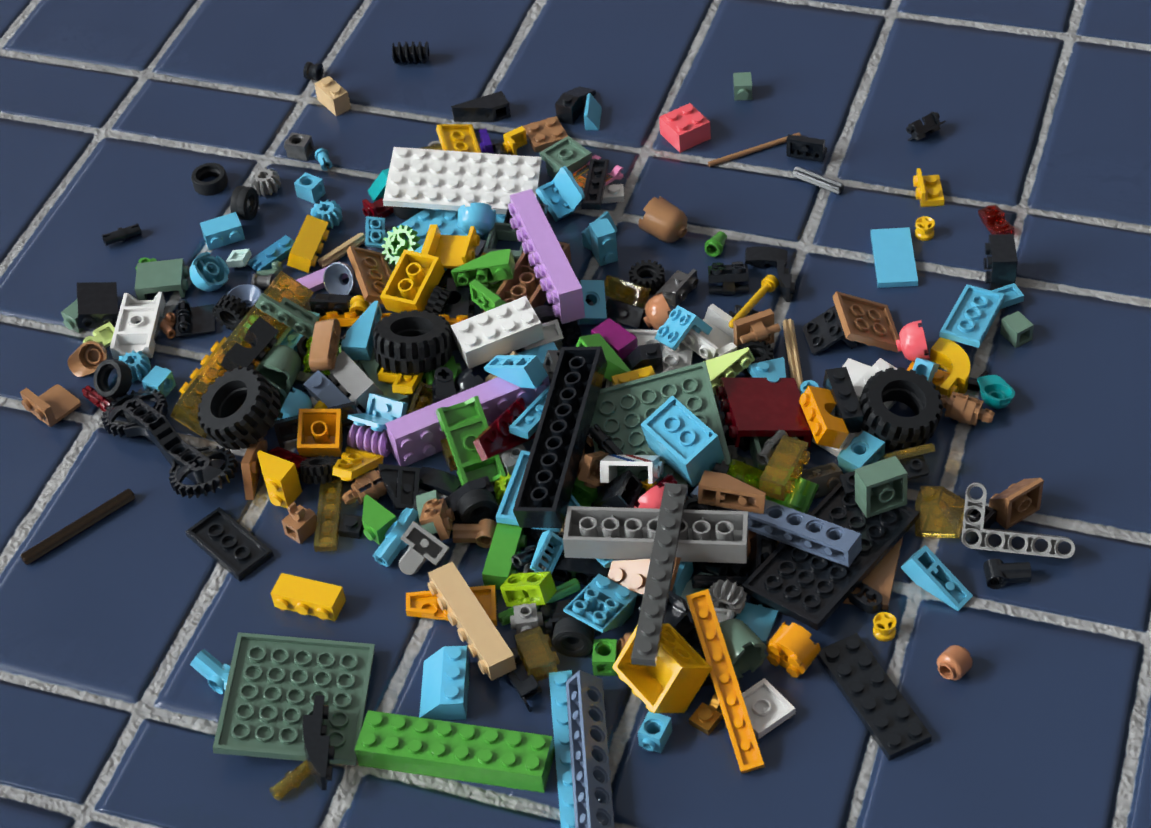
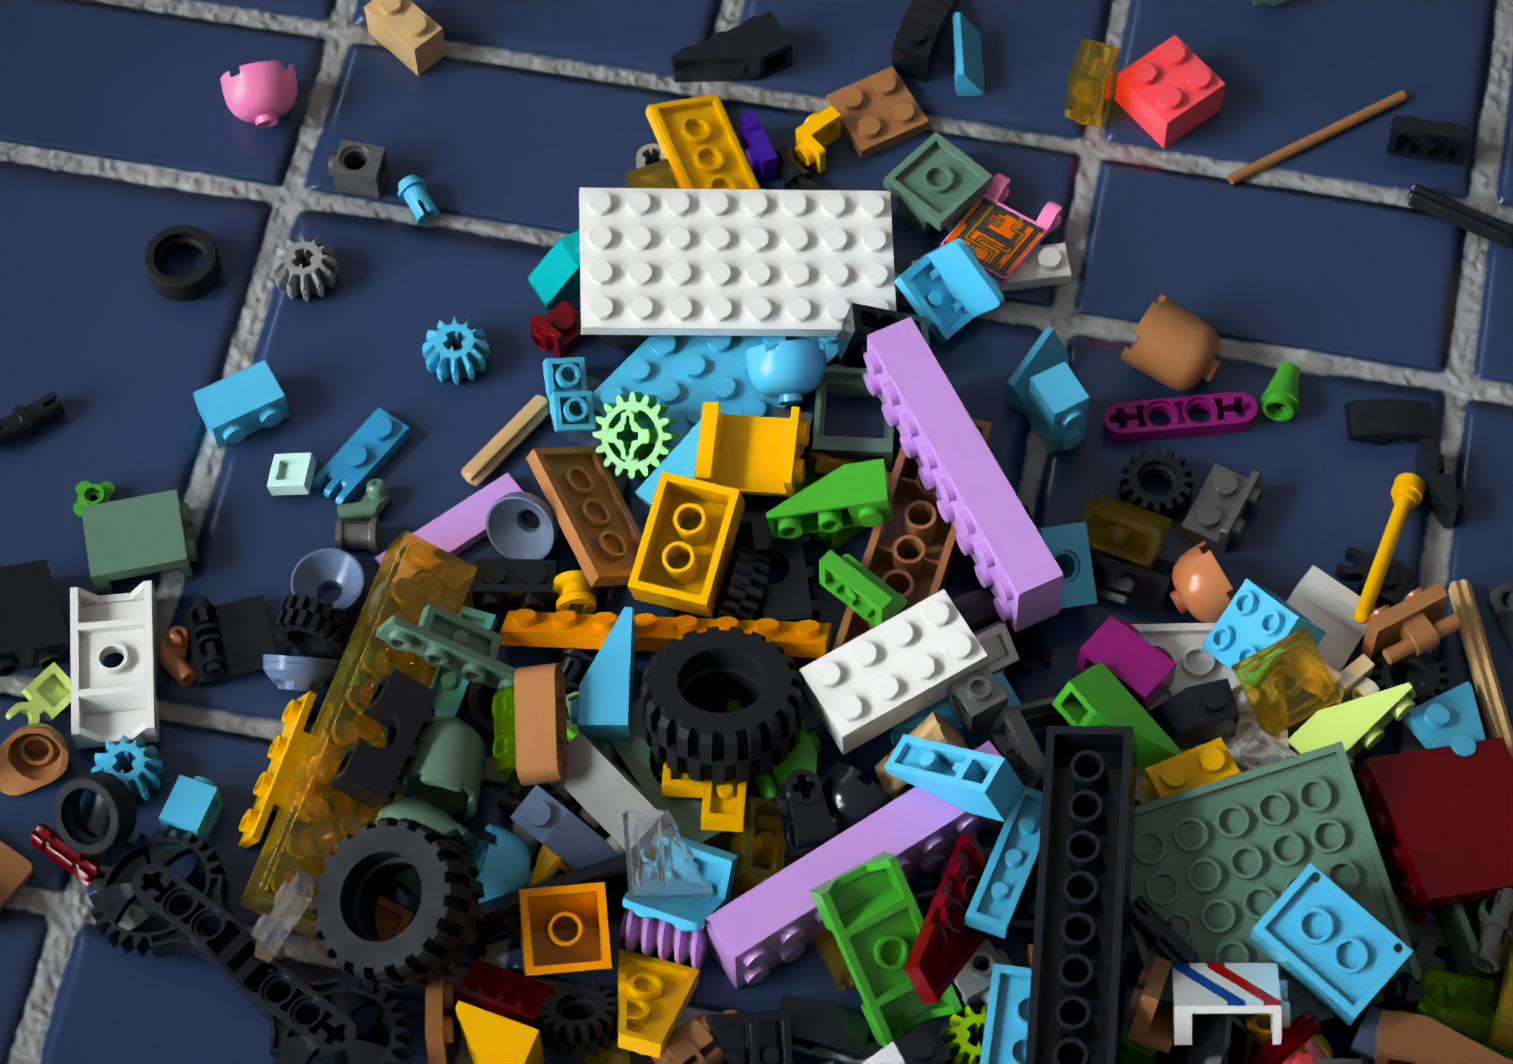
camera: 10 degrees left, 15 degrees up
(180, 420) = (289, 906): none -> clear plate
(208, 272) = (241, 523): medium azure cylinder -> none
(219, 327) = (299, 672): none -> sand blue piece
(244, 202) = (277, 332): black tyre -> none
(260, 114) = (261, 92): none -> bright pink cylinder
(308, 244) = (435, 433): yellow brick -> none
(309, 188) = (408, 294): medium azure brick -> none
(368, 399) = (659, 858): none -> clear wing
(537, 345) = (977, 700): none -> flat silver brick
(595, 184) = (1014, 255): black tile -> none
(636, 252) = (1178, 410): none -> magenta beam
(646, 120) = (1091, 82): none -> clear yellow brick
(688, 345) = (1286, 682): none -> clear yellow tile
(728, 275) = (1323, 479): black plate -> none

